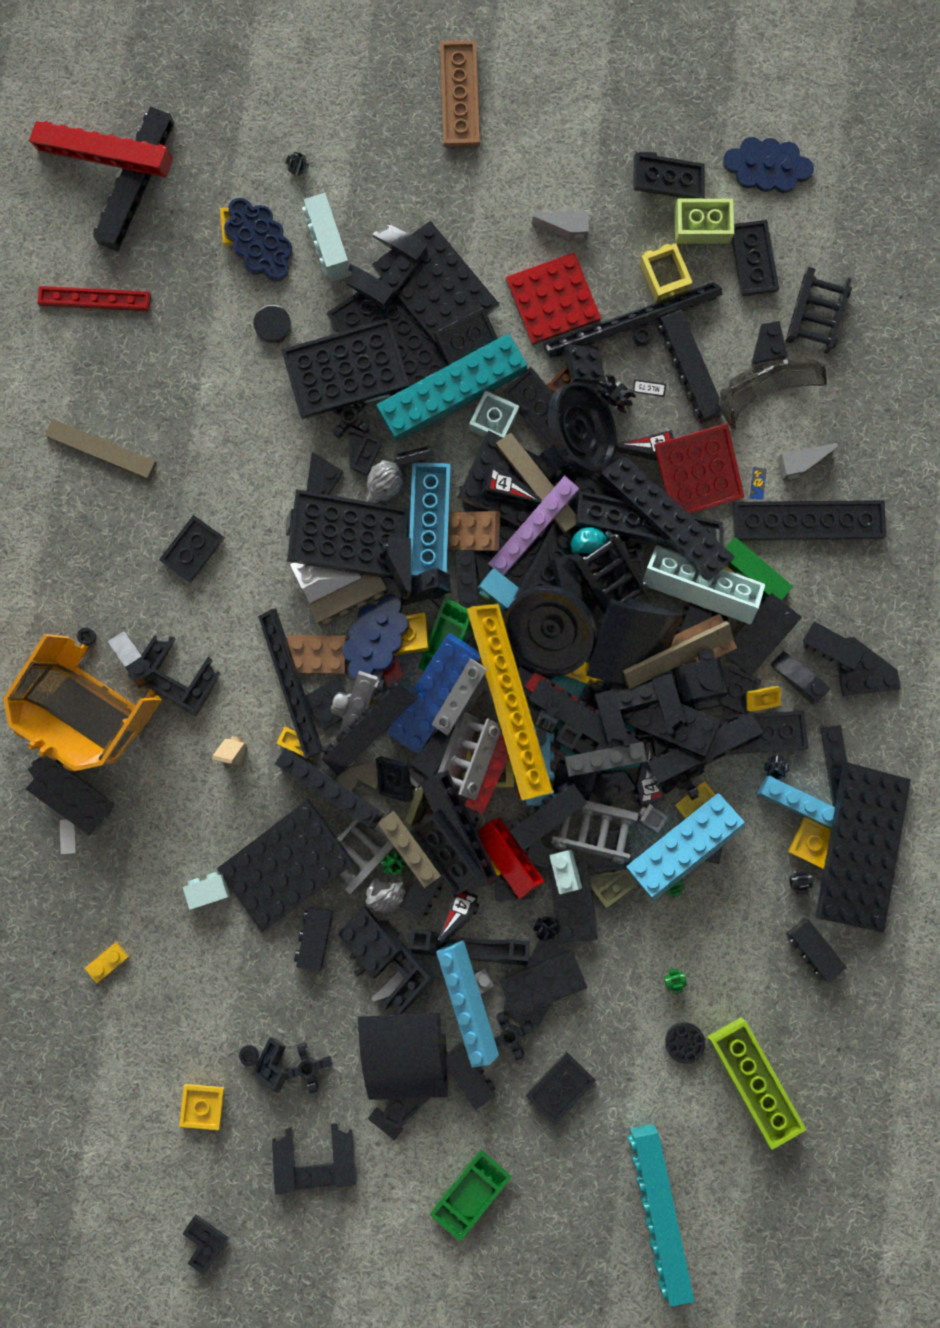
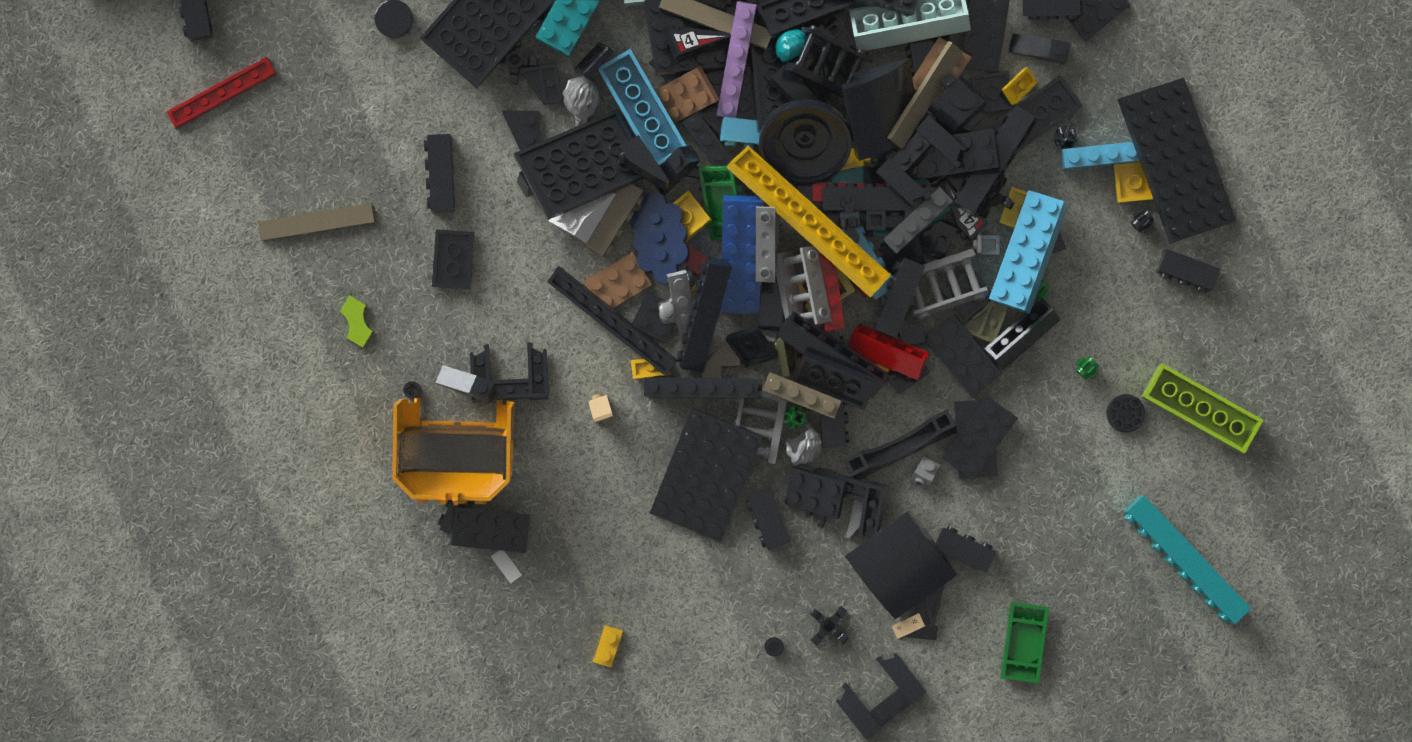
camera: 30 degrees left, 5 degrees up
(75, 559) = (354, 313): none -> lime tile
(201, 1107) = (762, 710): yellow plate -> none
(206, 891) = (653, 536): light aqua brick -> none
(227, 471) = (440, 173): none -> black brick
(267, 1066) = (794, 644): black plate -> none
(377, 1113) = (908, 626): none -> tan sticker
(458, 915) = (874, 425): slope -> none
(467, 1004) = (927, 490): medium azure brick -> none
(524, 1029) = (966, 488): black pin -> none
(546, 928) = (954, 391): black gear -> none
(560, 1088) = (1045, 513): black plate -> none
(565, 871) = (941, 334): light aqua brick -> none
(636, 915) = (1022, 334): none -> black brick
(834, 756) = (1107, 96): black plate -> none

